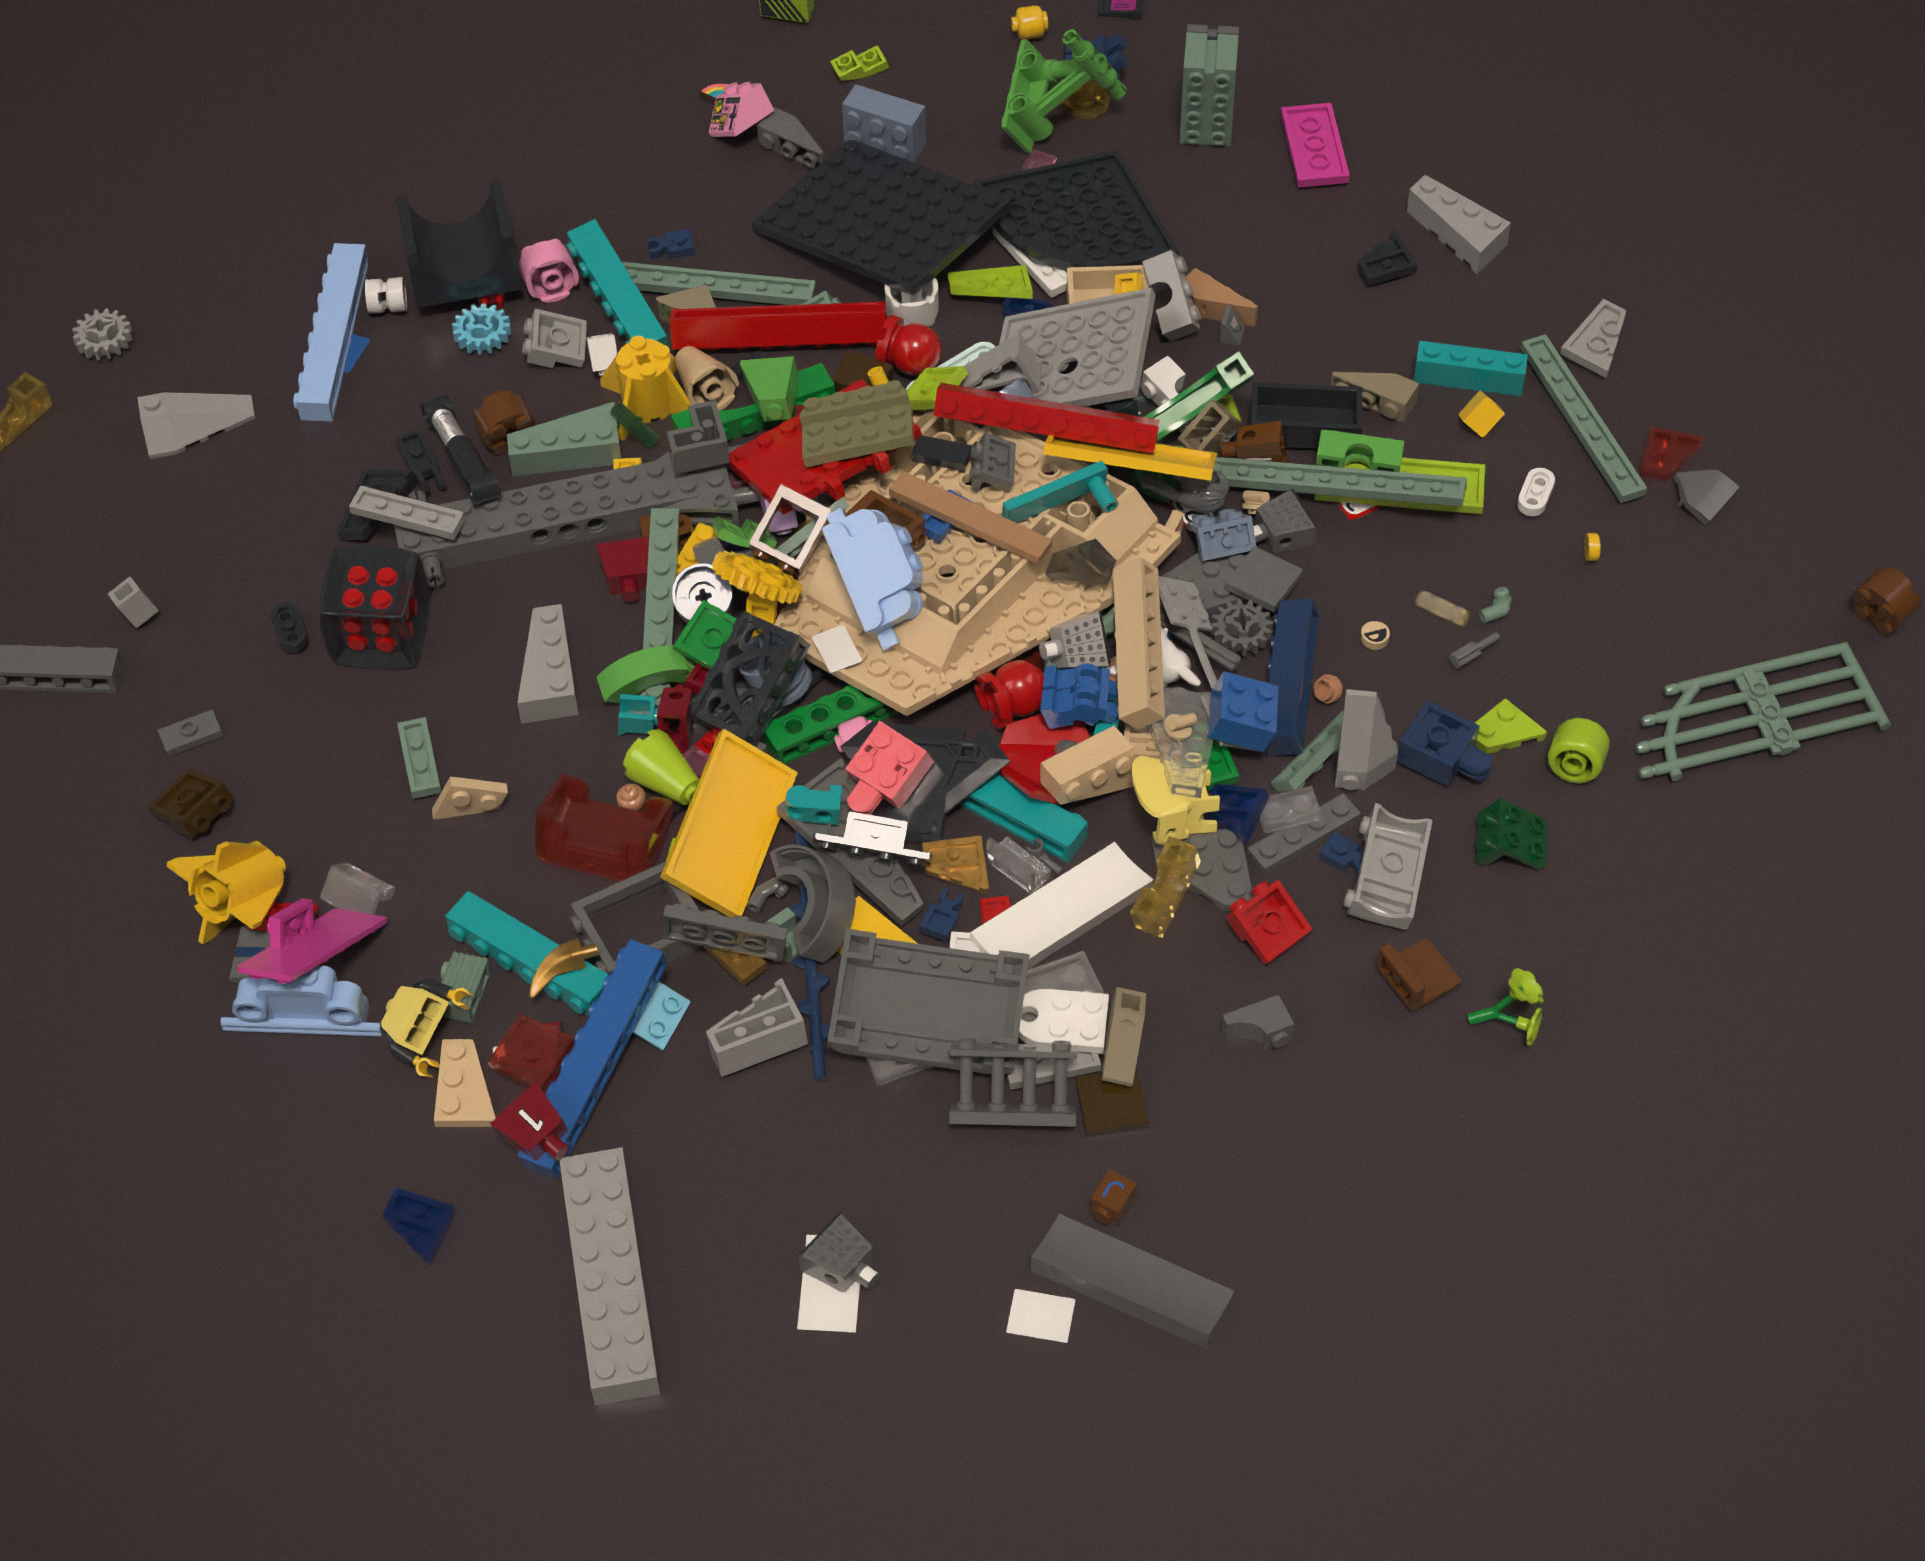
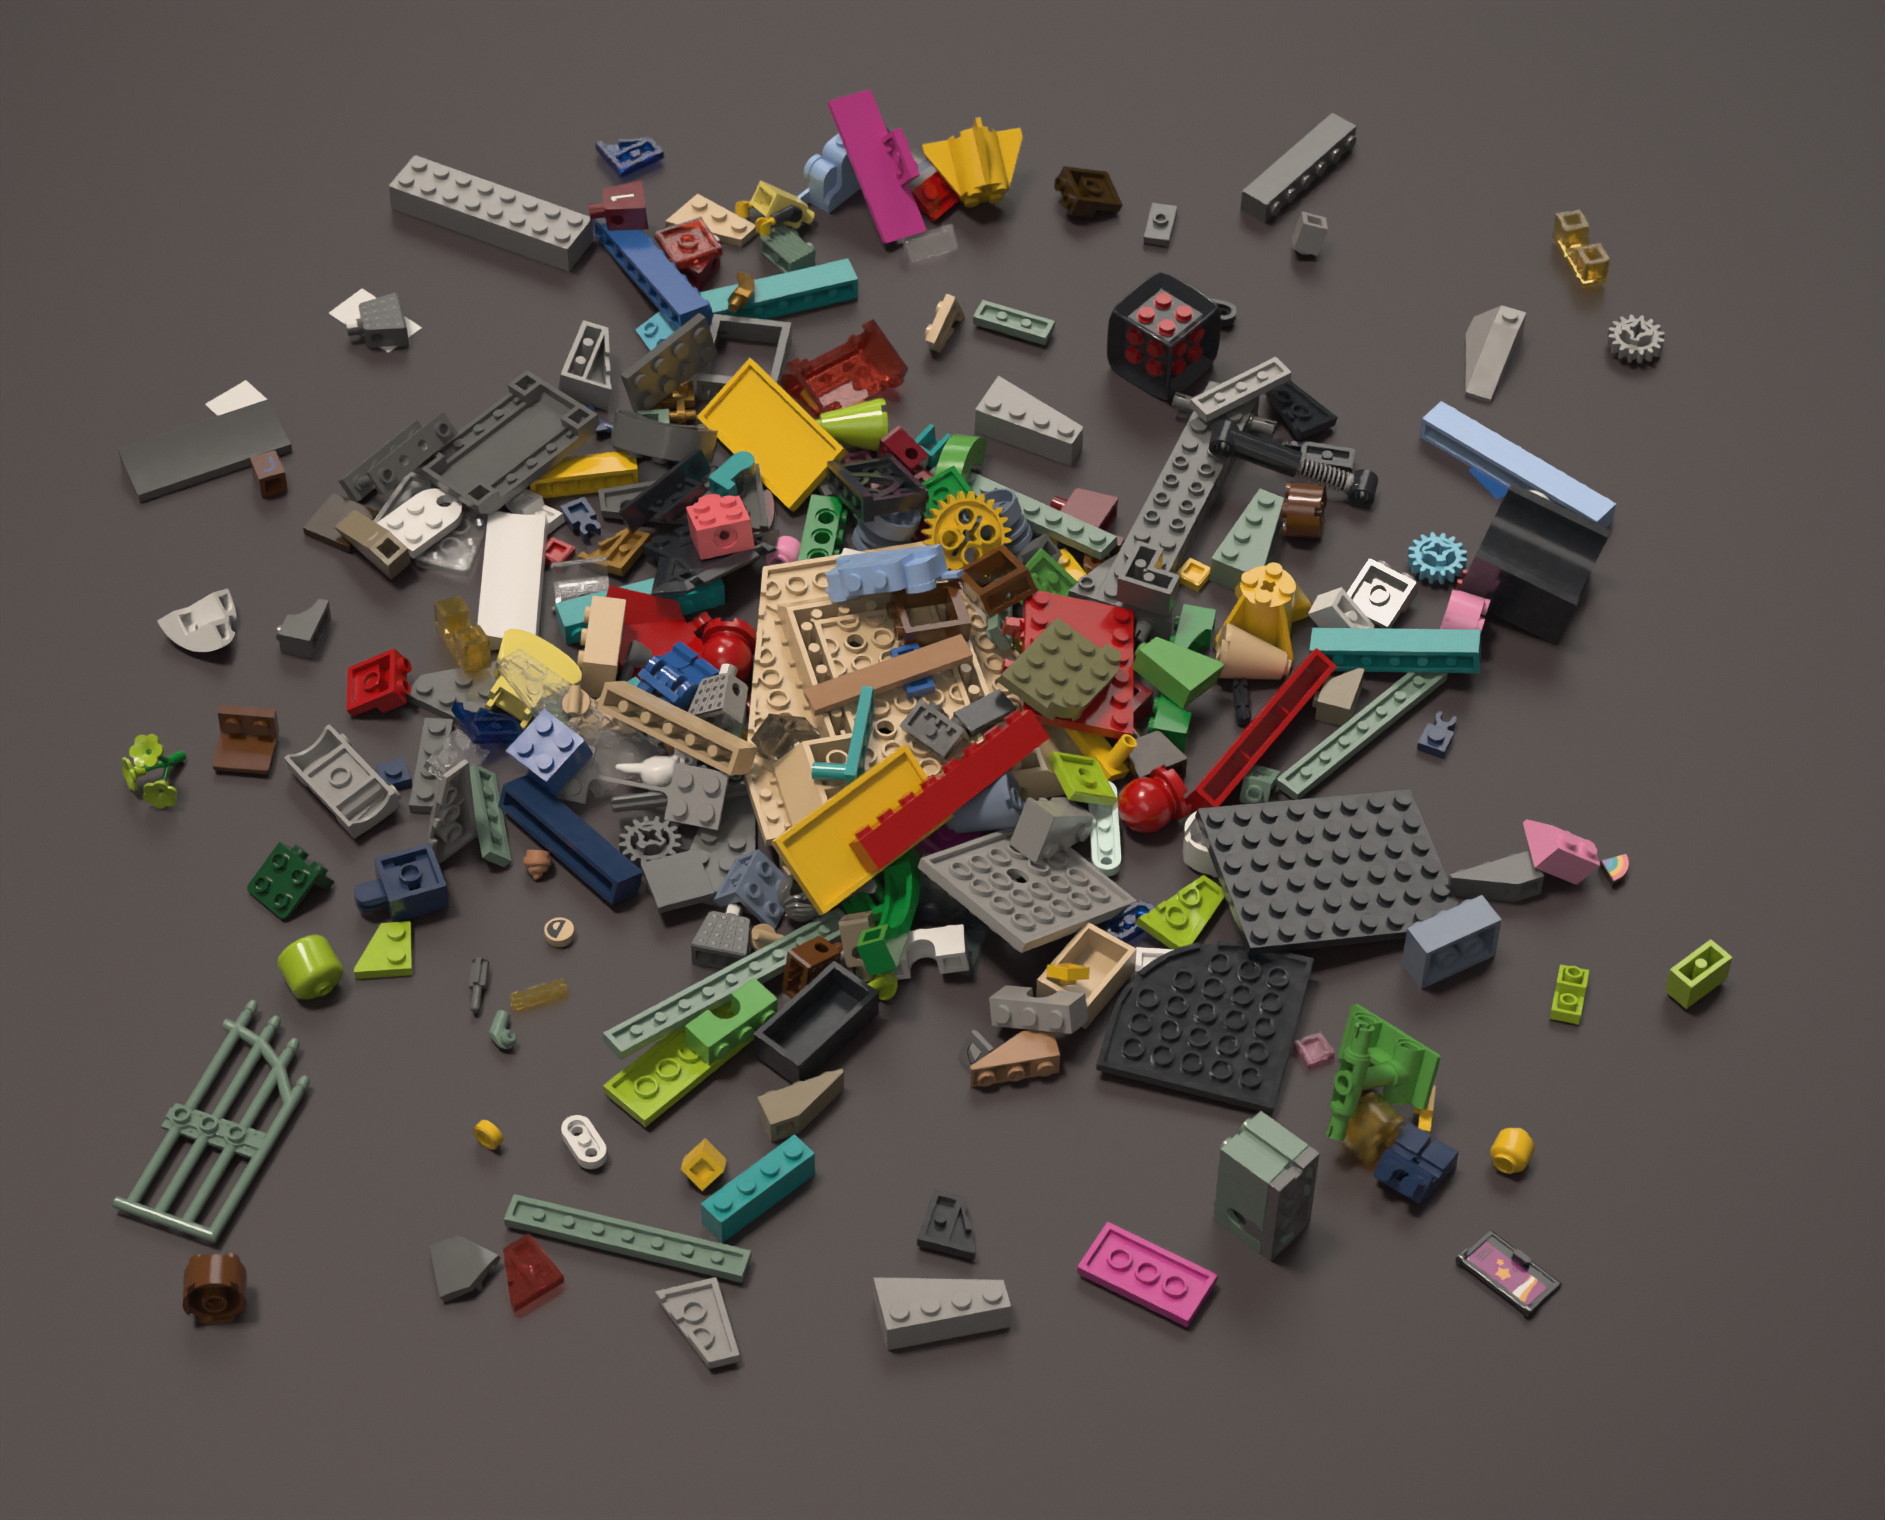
camera: 125 degrees right, 5 degrees down
(634, 424) = (1227, 585): clear green axle -> none
(1329, 1106) = (202, 625): none -> white brick

